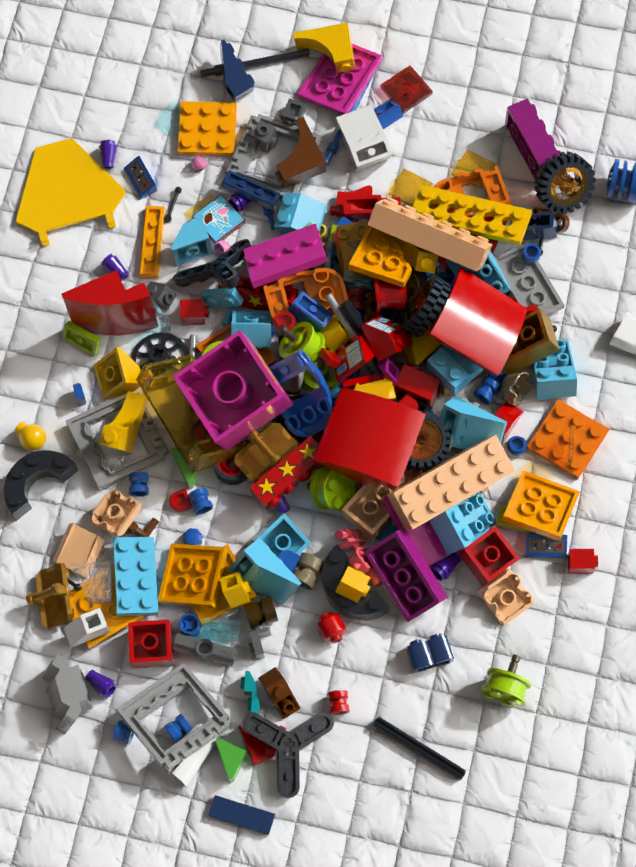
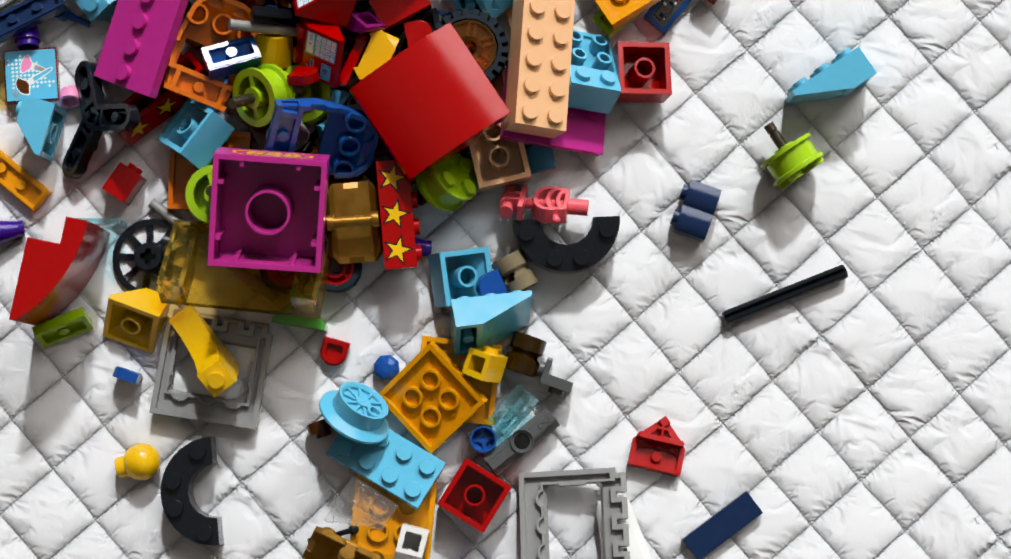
camera: 60 degrees left, 15 degrees up
(78, 547) = (308, 499): light nougat slope -> none
(115, 513) = (301, 432): light nougat slope -> none
(138, 484) = (283, 383): blue wheel -> none
(150, 535) = (356, 412): none -> medium azure wheel
(161, 294) = (74, 204): dark grey bracket -> none
(178, 728) = (585, 528): blue wheel -> none
(200, 500) = (349, 329): blue wheel -> none
(223, 298) = (132, 143): medium azure plate -> none
(232, 758) = (656, 494): bright green slope -> none
(250, 689) = (595, 422): teal slope -> none
(273, 735) = (670, 435): black piece -> none
(279, 692) = (623, 396): reddish brown slope -> none
(284, 318) = (220, 92): red tile -> none
(330, 627) = (595, 292): red head -> none
(338, 702) = (684, 346): red wheel -> none
(353, 584) = (573, 236): yellow brick -> none
(405, 574) = (600, 173): magenta brick -> none
(445, 566) = (616, 127): dark purple cone -> none
(505, 596) = (695, 88): light nougat slope -> none
(578, 678) = (844, 76): none -> medium azure slope

